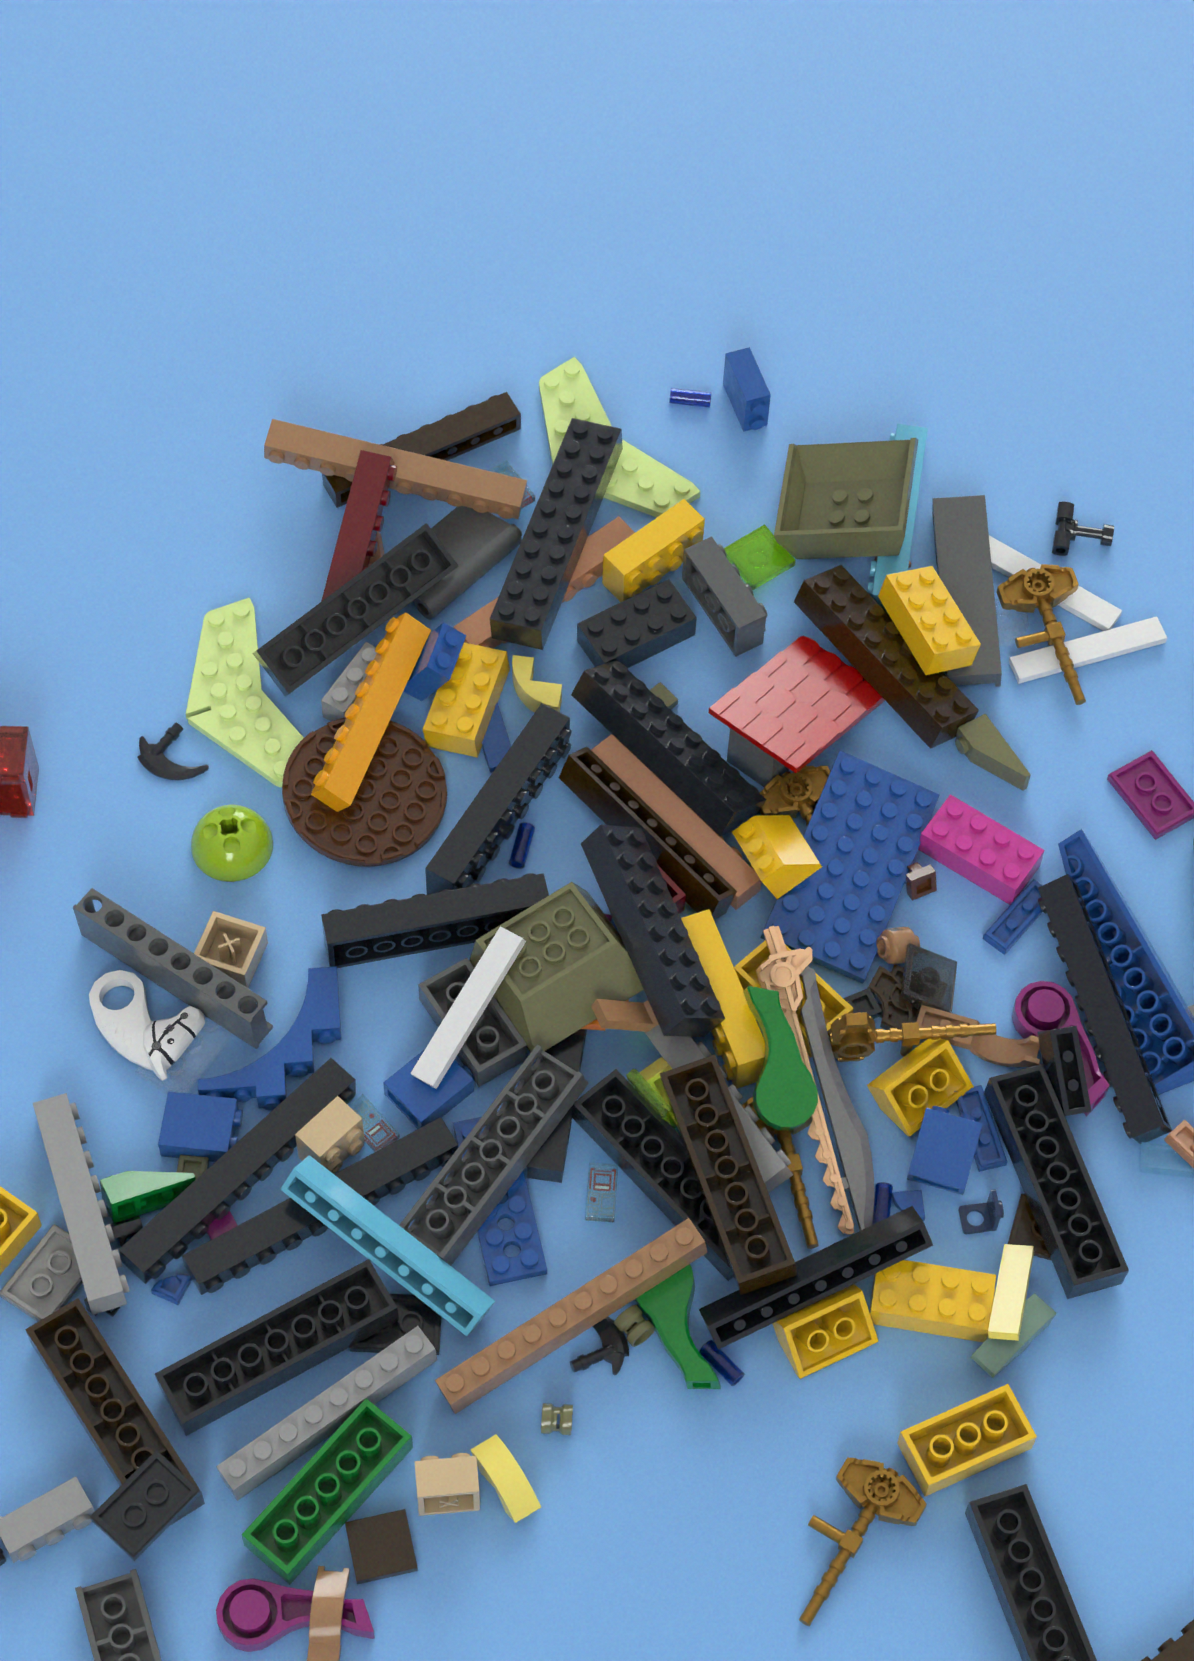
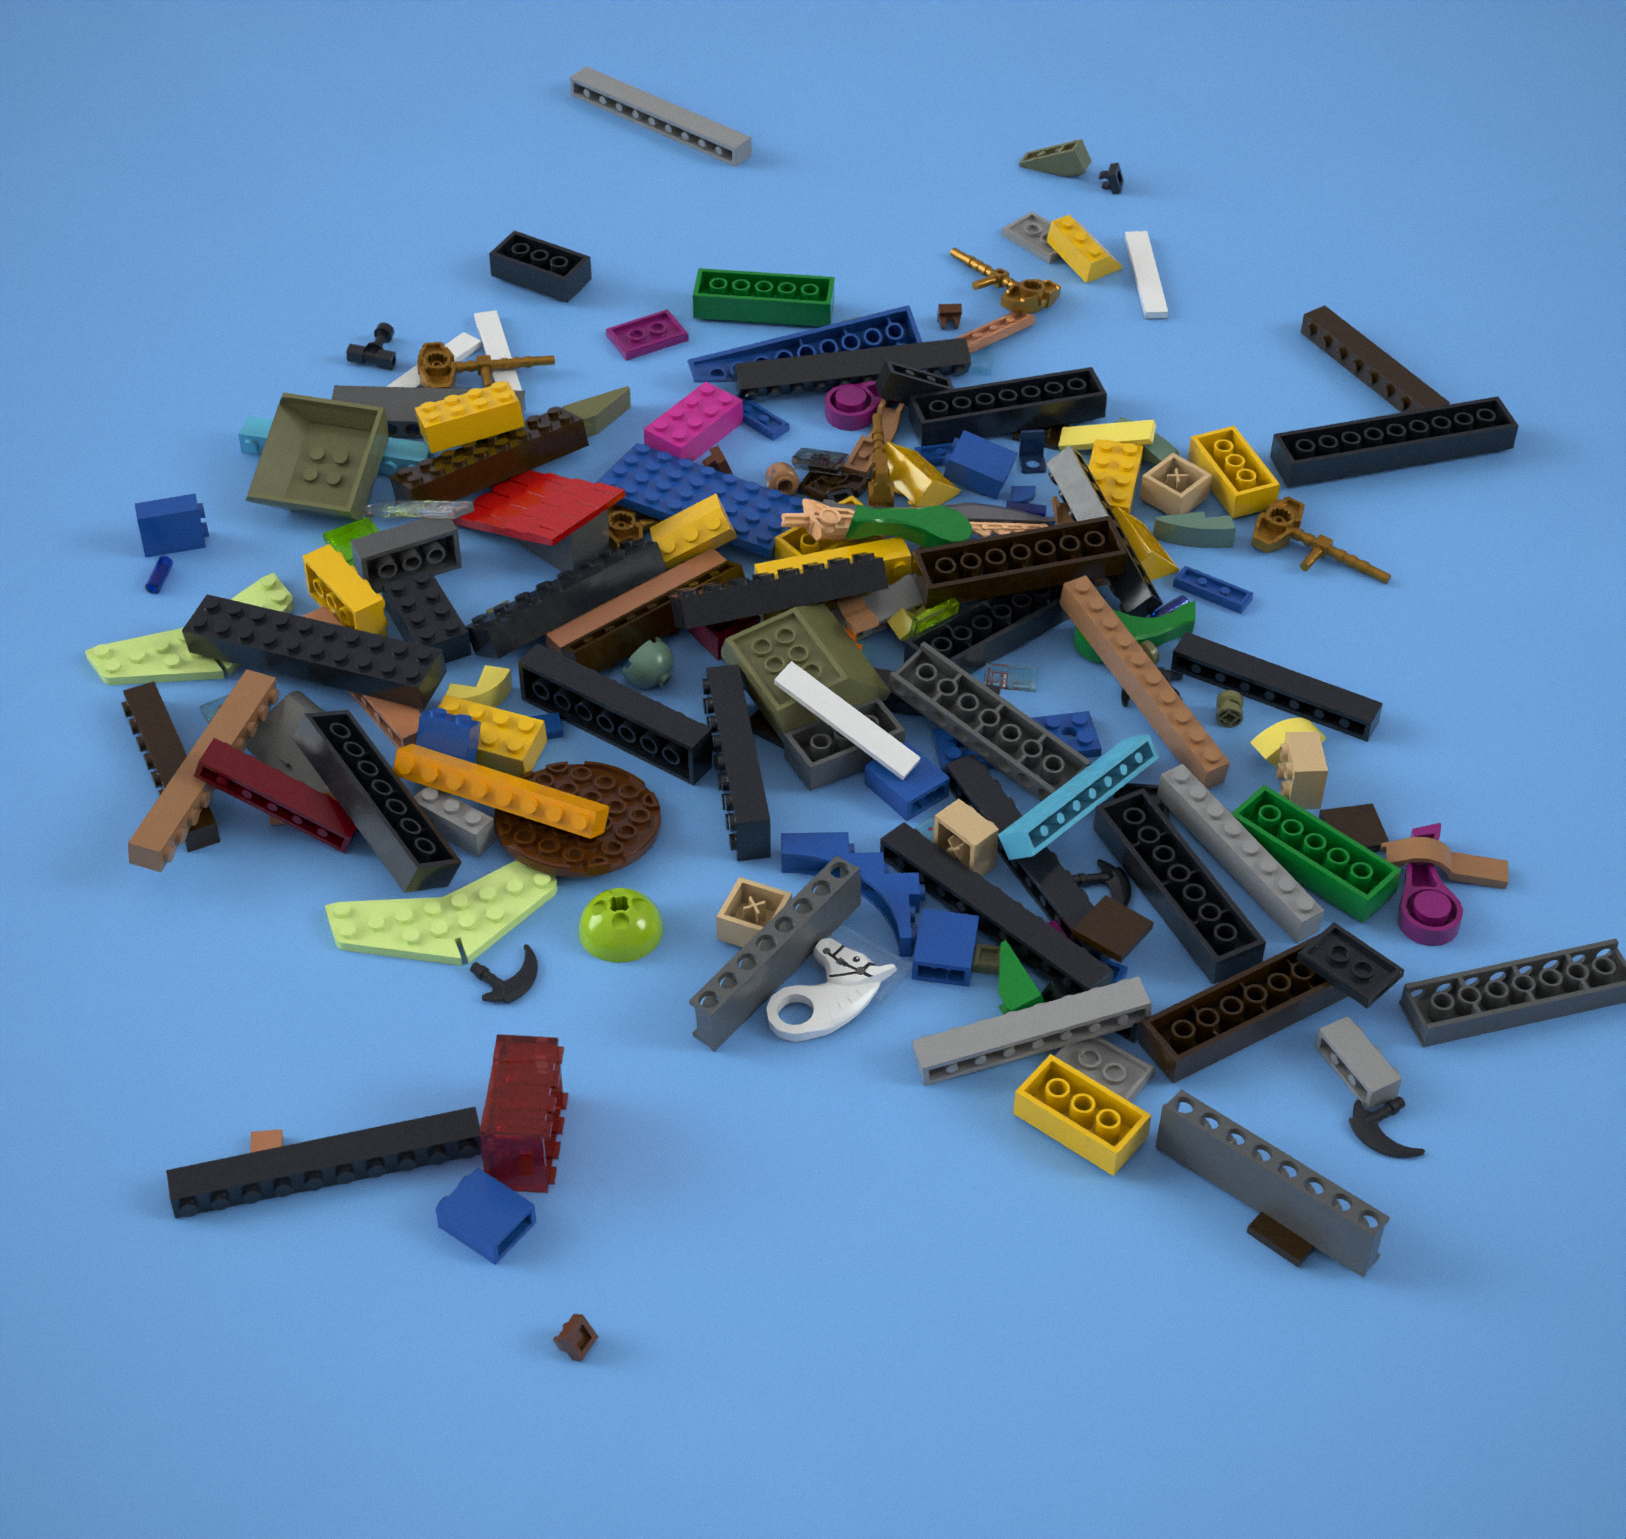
camera: 85 degrees left, 15 degrees down
(204, 1276) = (1112, 928): none -> dark brown tile
(277, 1298) = (1113, 877): none -> black piece
(571, 831) = (650, 665): none -> sand green cylinder
(596, 1474) = (1276, 686): none -> black brick
(766, 1415) = (1213, 589): none -> blue tile
(773, 593) = (418, 509): none -> clear tile
(861, 1398) = (1195, 530): none -> sand green slope
(930, 1370) = (1175, 485): none -> tan brick

